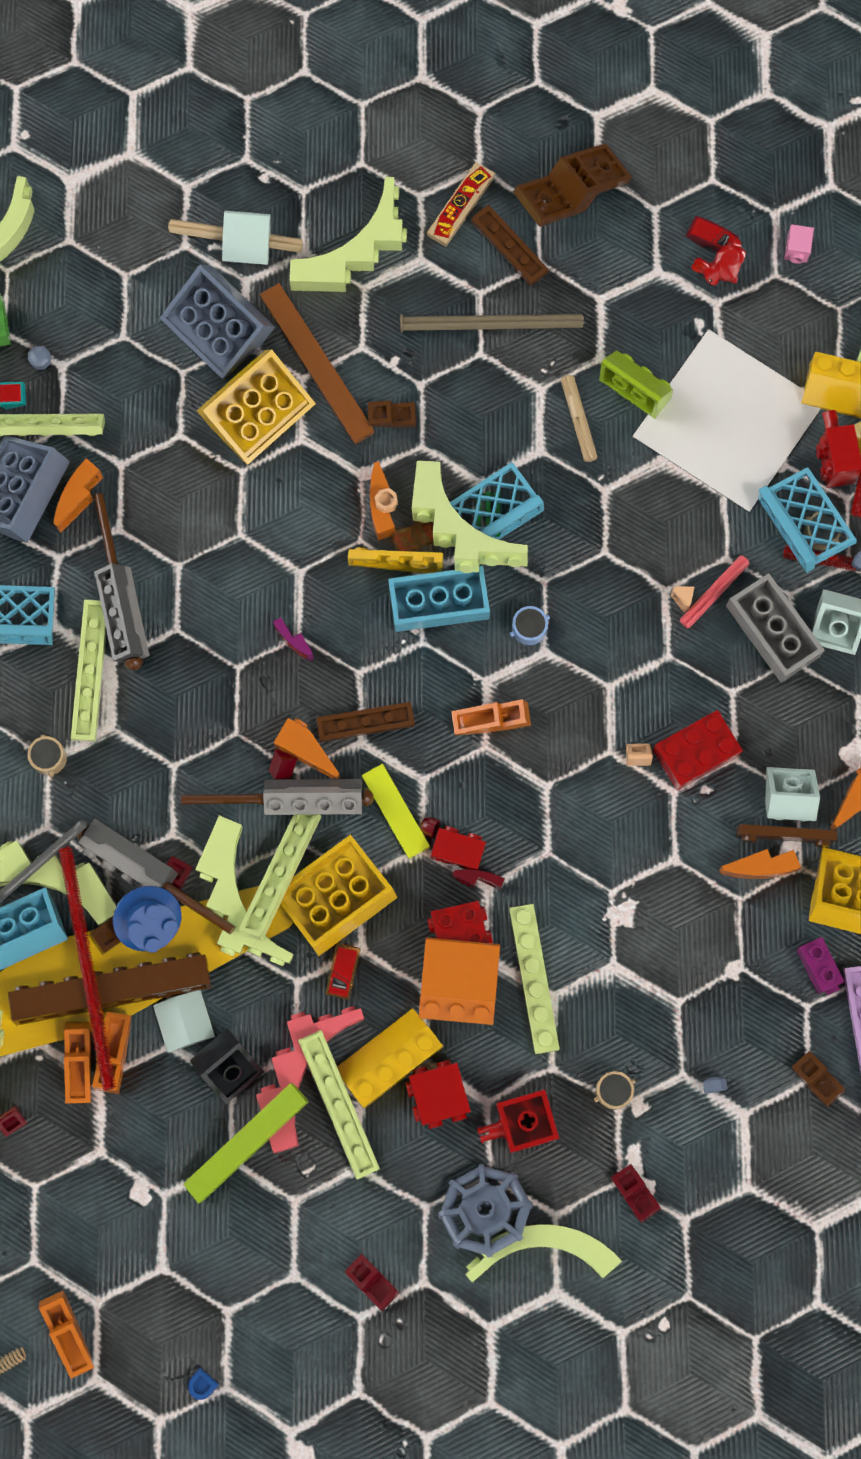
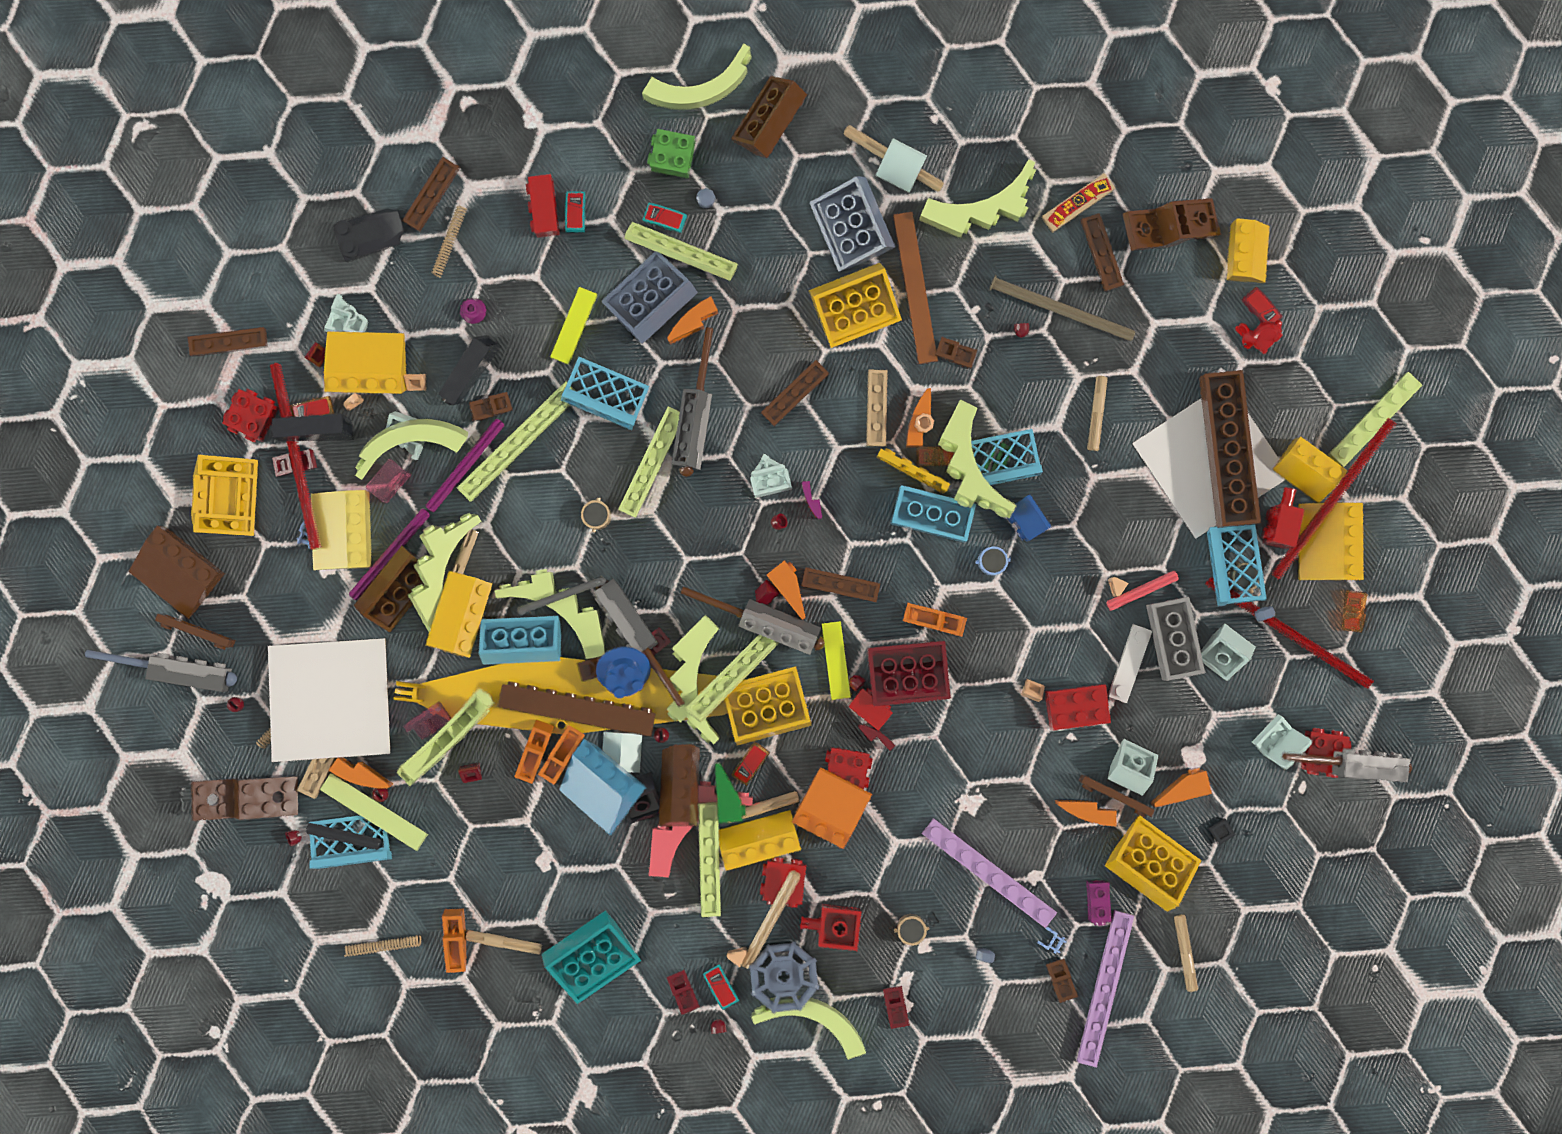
camera: 20 degrees right, 10 degrees up
(77, 242) = (769, 116): none -> reddish brown slope
(86, 967) = (569, 670): red axle -> none
(127, 1311) = (503, 942): none -> tan axle
(171, 1068) = (600, 786): none -> slope
(202, 1385) = (536, 1014): blue tile -> none
(225, 529) = (795, 393): none -> reddish brown plate
(228, 978) = (665, 735): none -> dark red hinge
(234, 635) = (769, 478): none -> light aqua slope
(241, 1285) = (590, 957): none -> teal slope
(245, 1143) = (632, 860): lime tile -> none
(265, 679) = (779, 522): none -> dark red hinge
(267, 1028) = (679, 786): none -> reddish brown slope
(326, 510) = (876, 408): none -> tan tile
(333, 1021) = (729, 802): none -> green slope
(376, 1018) = (771, 804): none -> tan axle
(415, 1256) = (721, 987): none -> slope
(419, 1208) = (737, 955): none -> light nougat slope
(431, 1307) = (718, 1026): none -> dark red hinge
(440, 1144) = (771, 919): none -> tan axle
(454, 360) = (1022, 329): none -> dark red hinge
(485, 787) = (908, 673): none -> dark red slope
(534, 979) = (886, 825): yellowish green plate -> none
(550, 560) = (1028, 519): none -> blue slope
(635, 383) = (1152, 404): lime slope -> none
(669, 183) = (1248, 251): none -> yellow slope
(678, 986) = (989, 873): none -> lavender plate
(736, 679) = (1129, 663): none -> white plate
(743, 397) = (1229, 449): none -> reddish brown brick
(796, 1036) = (1056, 949): none -> light blue piece
(799, 244) = (1326, 342): bright pink brick -> none

